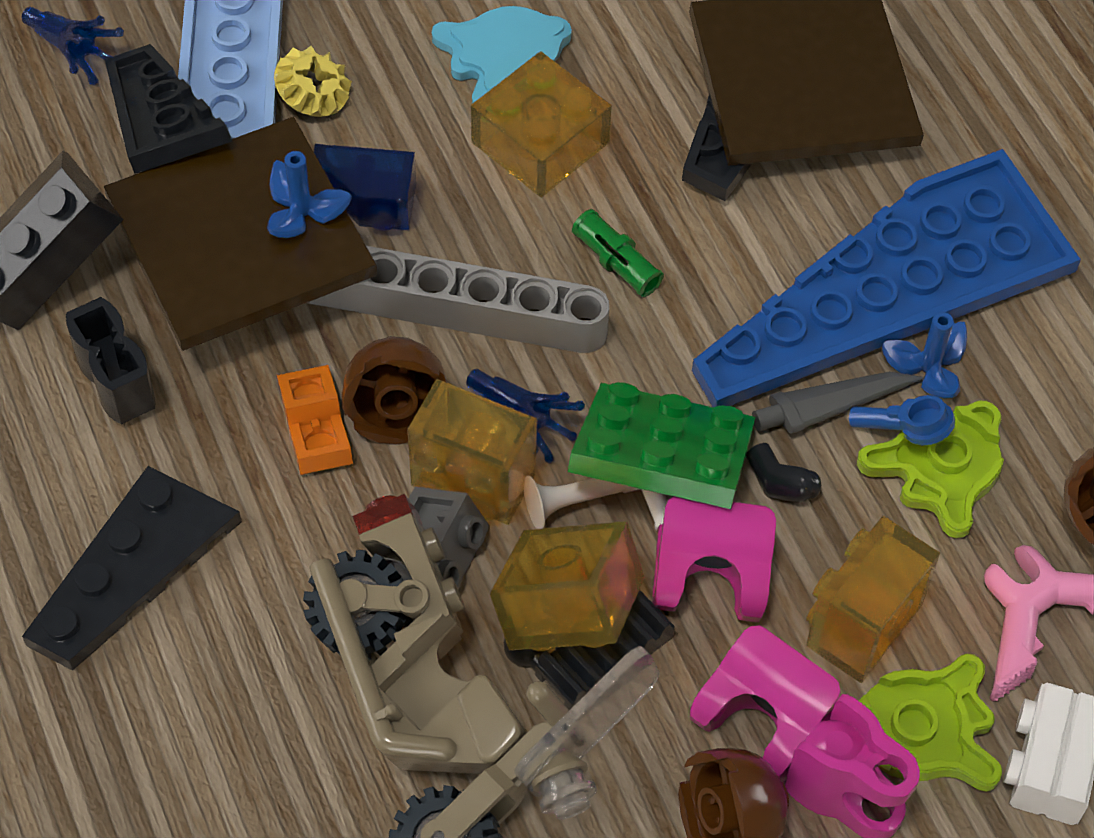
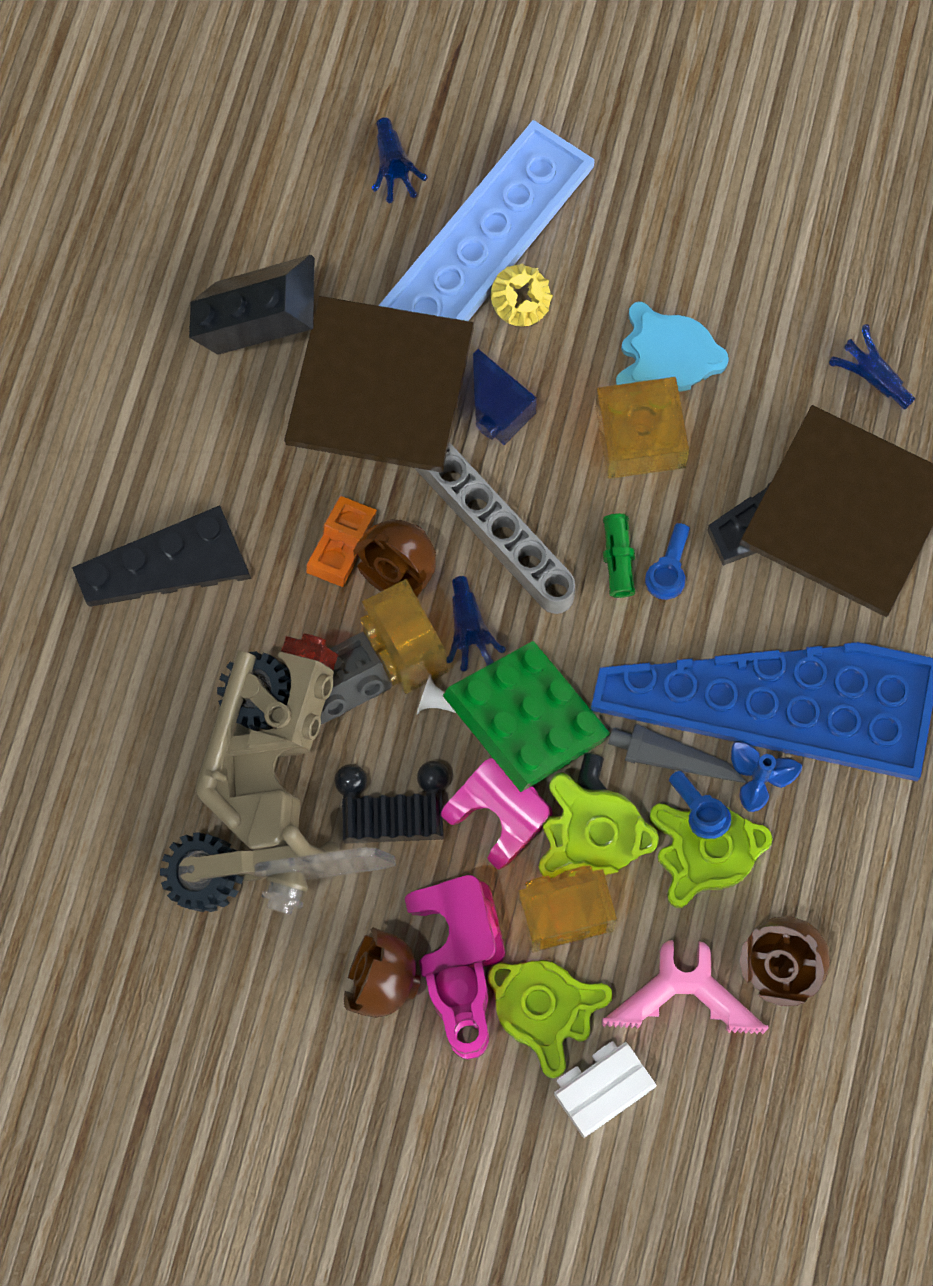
camera: 45 degrees right, 15 degrees up
(110, 360) = (243, 420): black brick -> none
(159, 111) = (397, 259): black wing -> none
(291, 189) = (427, 377): blue plant -> none
(568, 586) = (386, 769): clear yellow brick -> none
(681, 241) = (665, 577): none -> blue plate
(821, 511) = (593, 830): none -> lime tile

